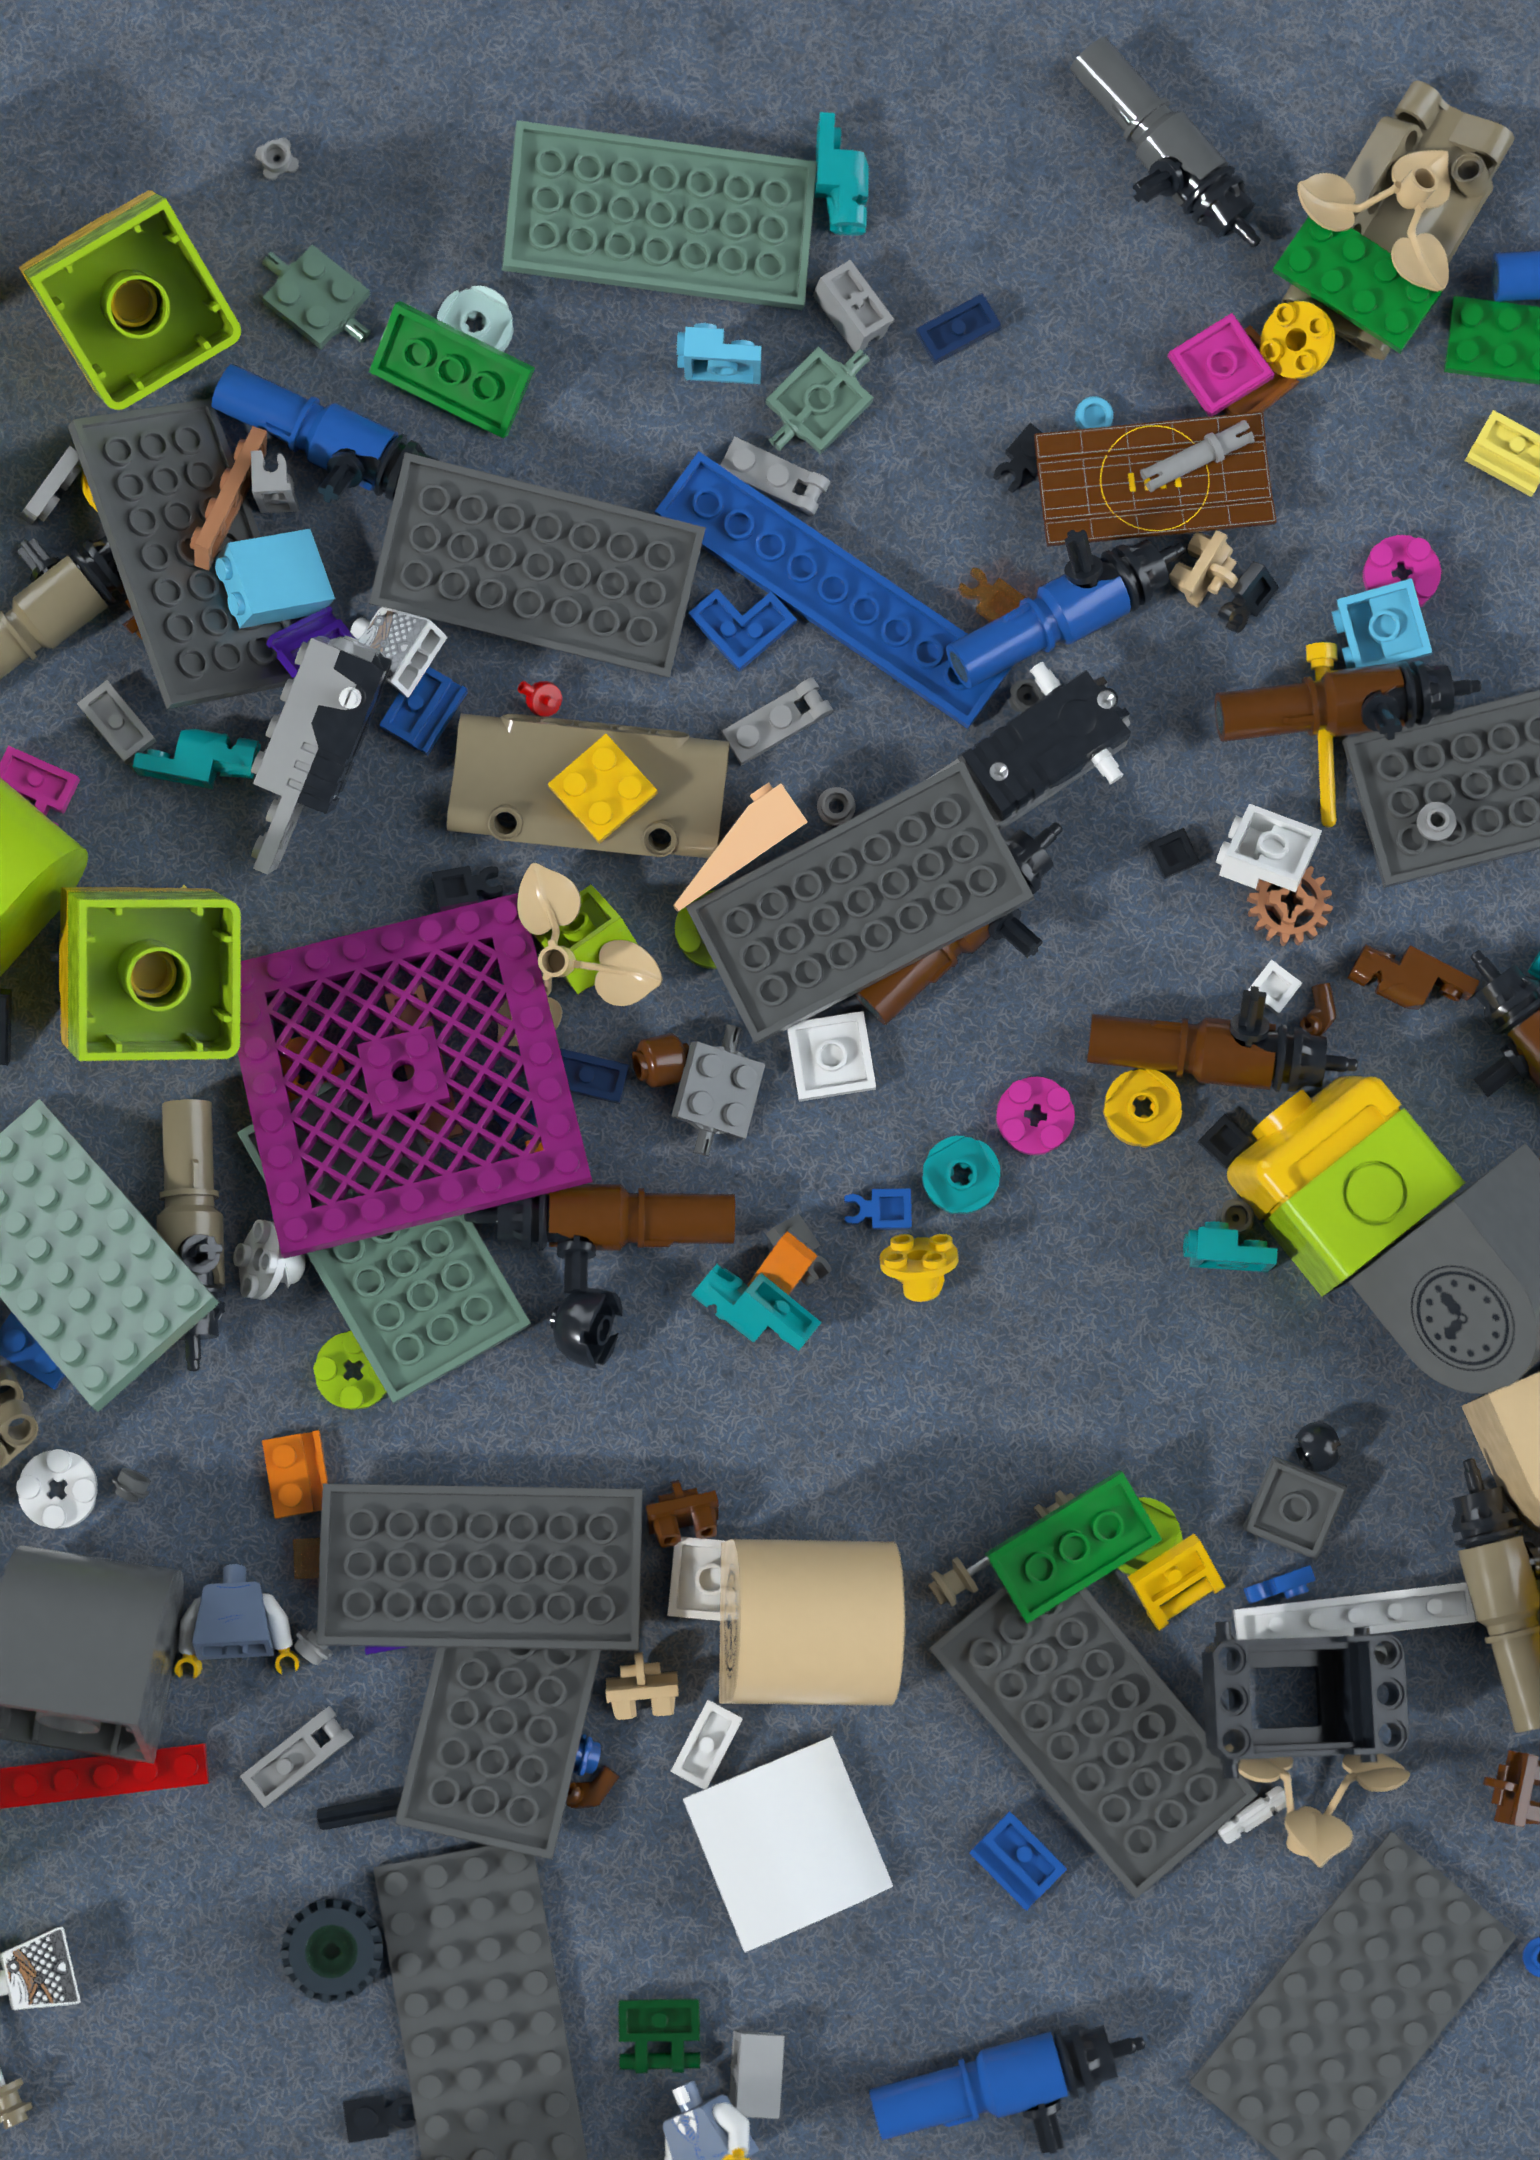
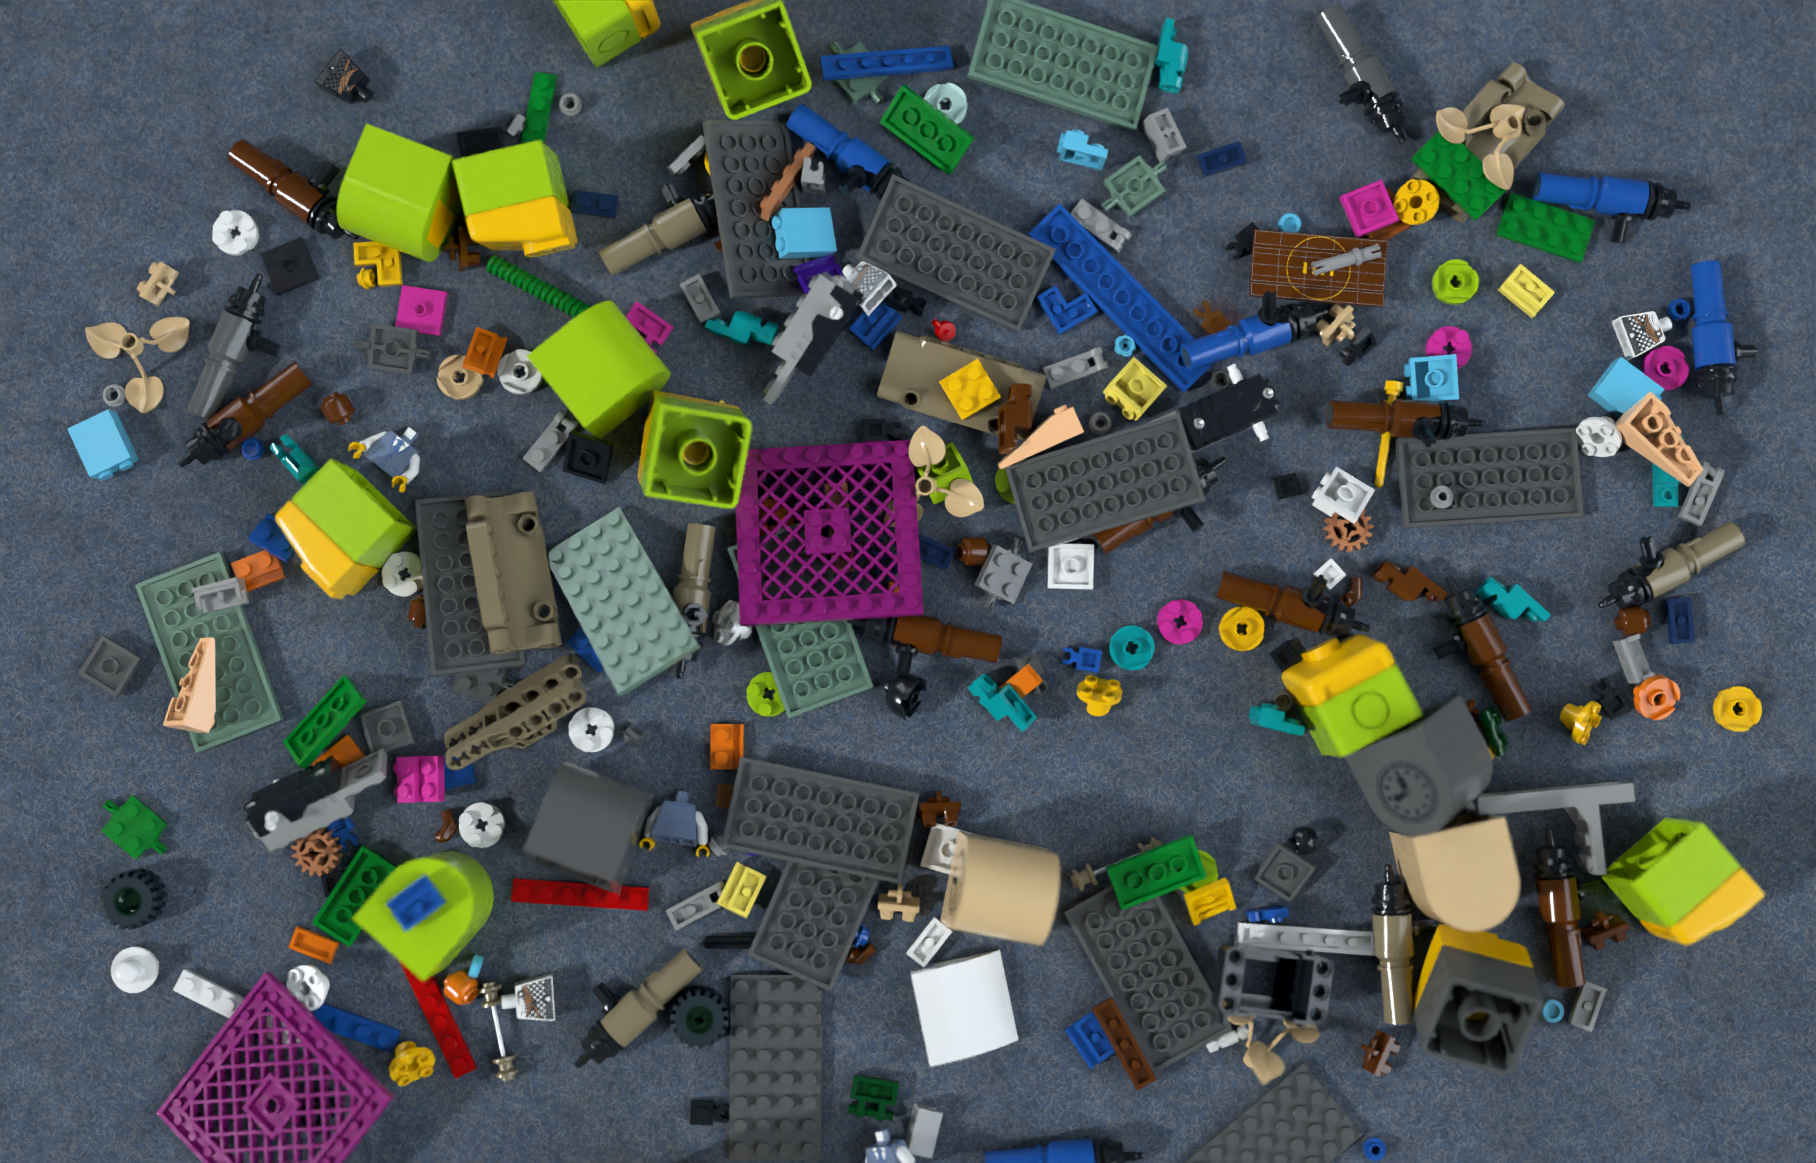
camera: 10 degrees right, 5 degrees up
(220, 1958) = (636, 1010): none -> dark tan piece
(361, 271) = (885, 63): none -> blue plate
(365, 1715) = (741, 890): none -> light yellow plate
(462, 661) = (902, 301): none -> black plate
(686, 819) = (1014, 416): none -> reddish brown plate
(858, 677) = (1131, 346): none -> medium azure plate
(882, 738) = (1134, 389): none -> light yellow plate
(1074, 1854) = (1123, 1043): none -> reddish brown plate
(1404, 444) = (1464, 273): none -> lime plate

